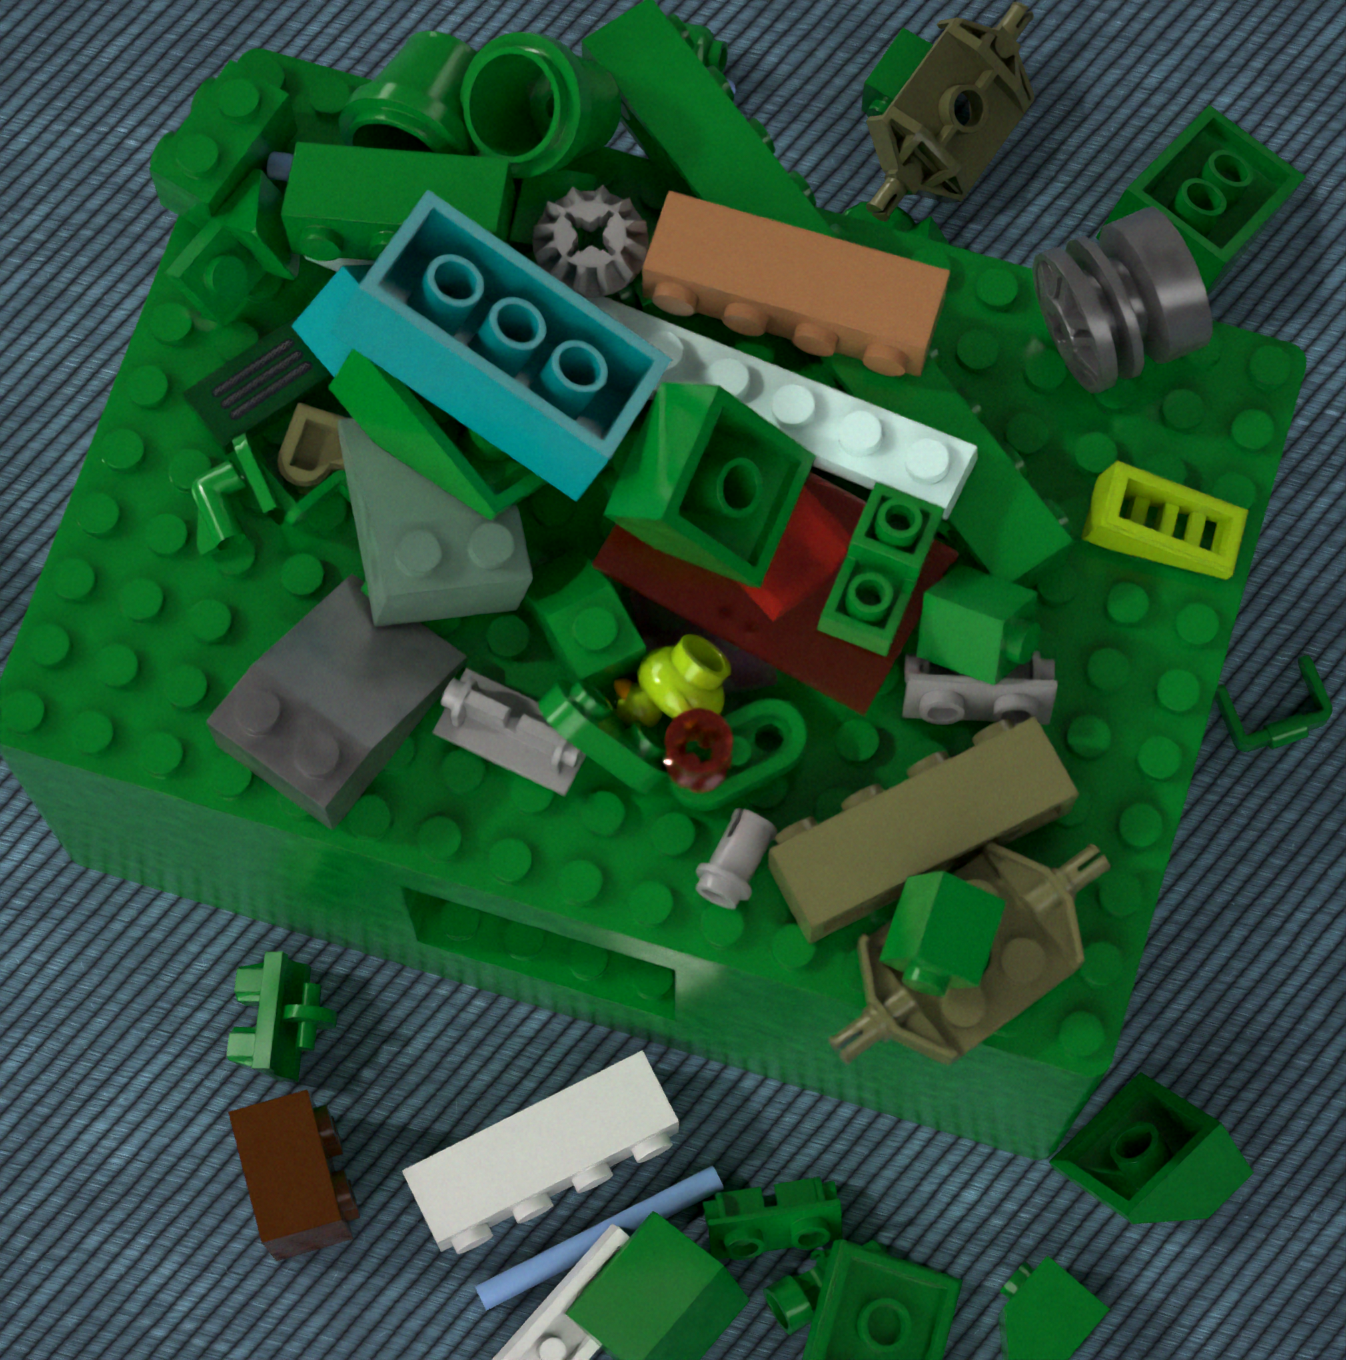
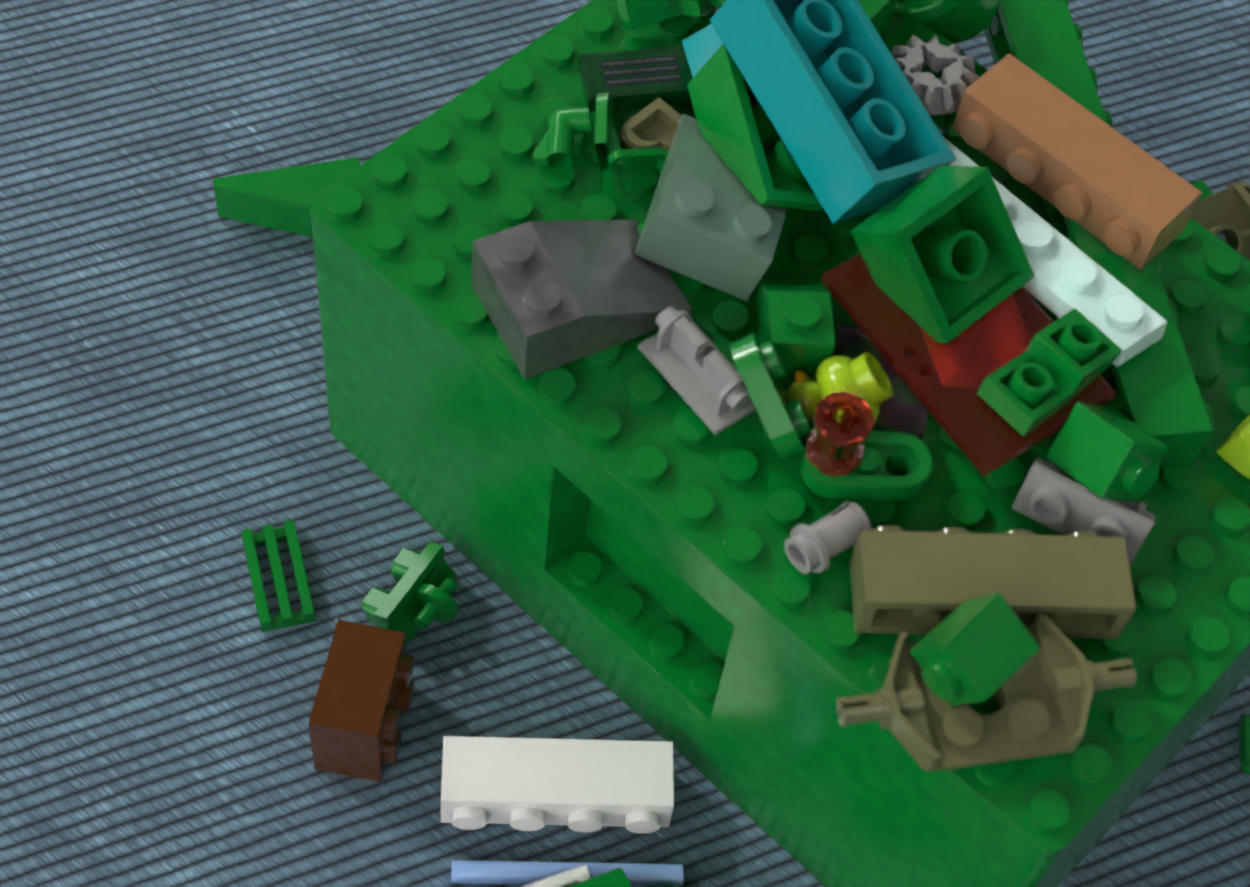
camera: 20 degrees right, 15 degrees down
(81, 1027) = (270, 537): none -> green tile

